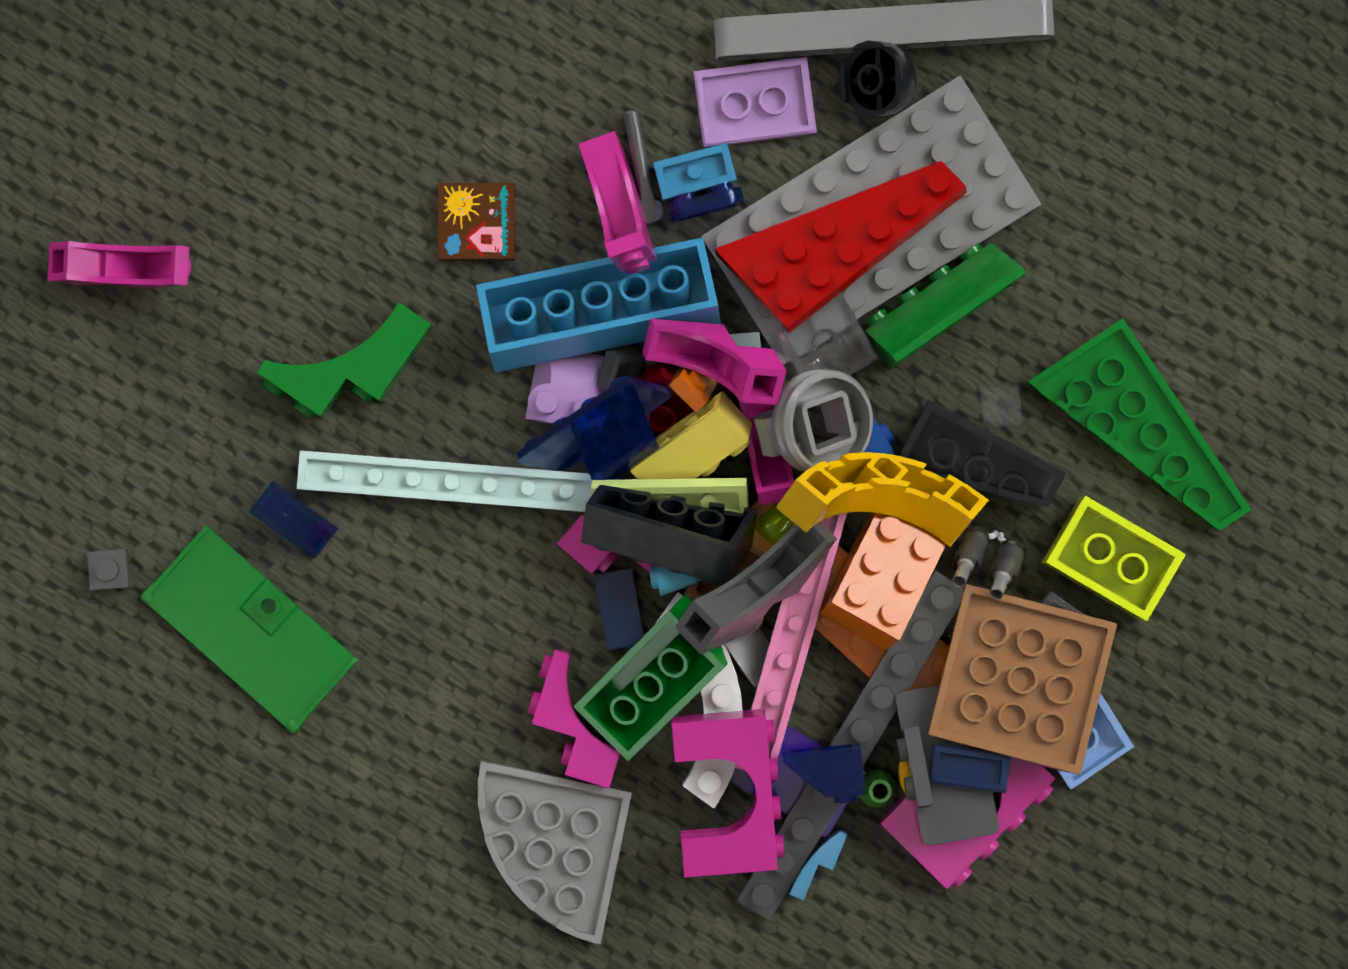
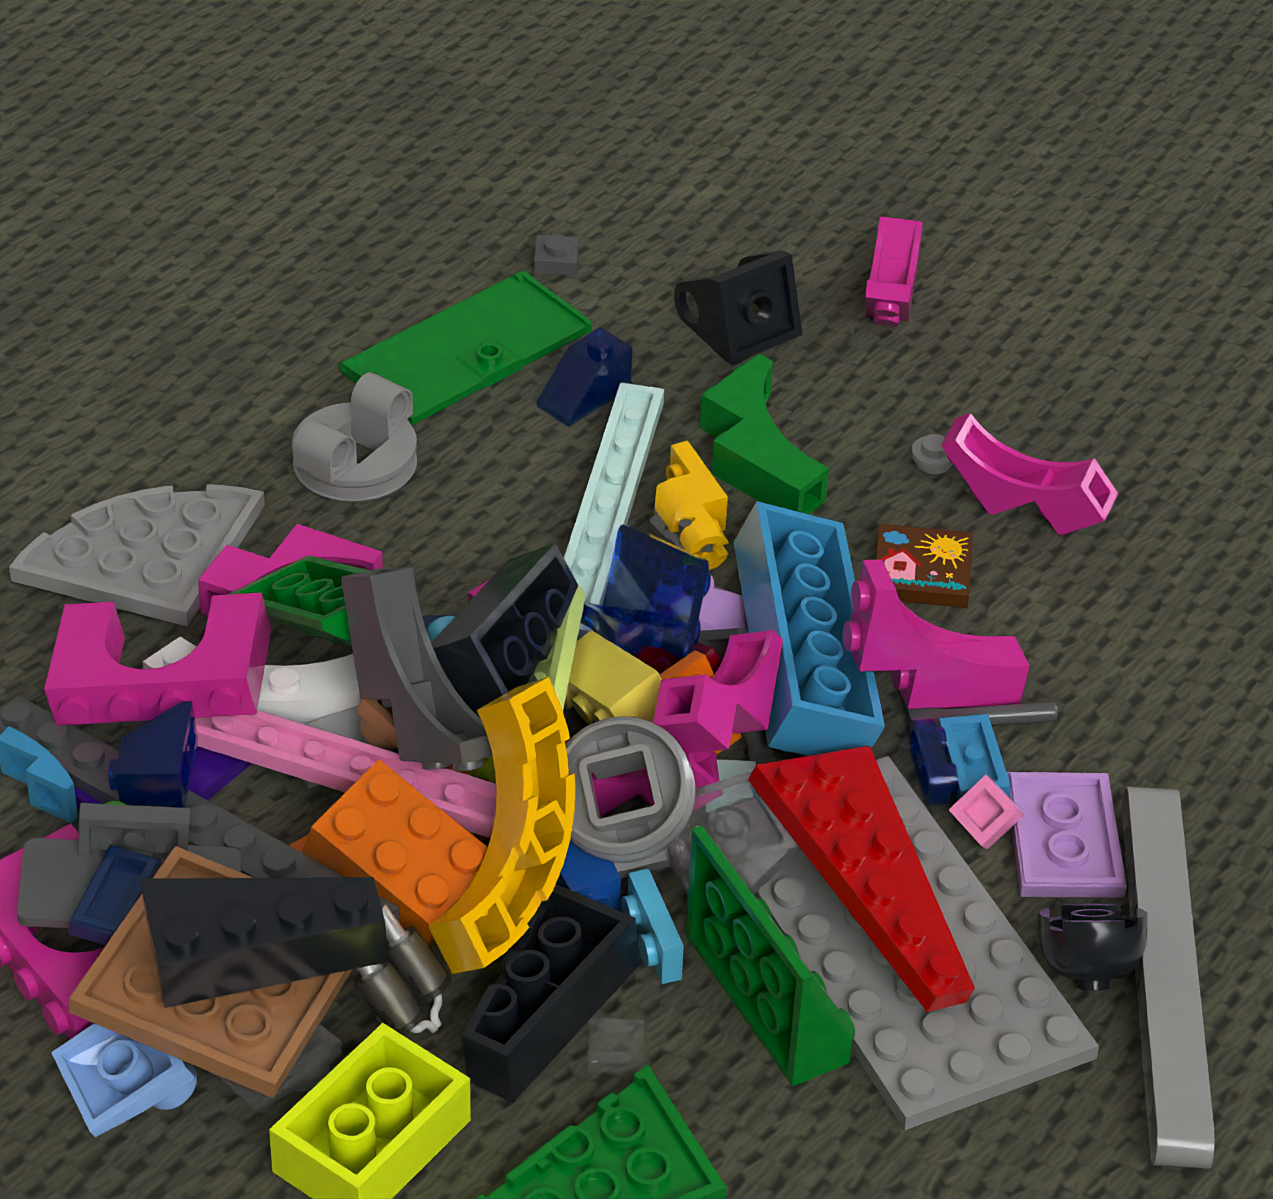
camera: 95 degrees right, 45 degrees down
(190, 382) = (727, 301): none -> black hose
(338, 218) = (930, 455): none -> light grey plate
(379, 680) = (375, 419): none -> light grey piece
(383, 138) = (1001, 479): none -> dark pink arch
(450, 415) = (691, 507): none -> yellow plate
(754, 159) = (986, 812): none -> bright pink plate
(915, 386) = (658, 937): none -> medium azure plate
(1024, 660) = (258, 932): none -> black wedge

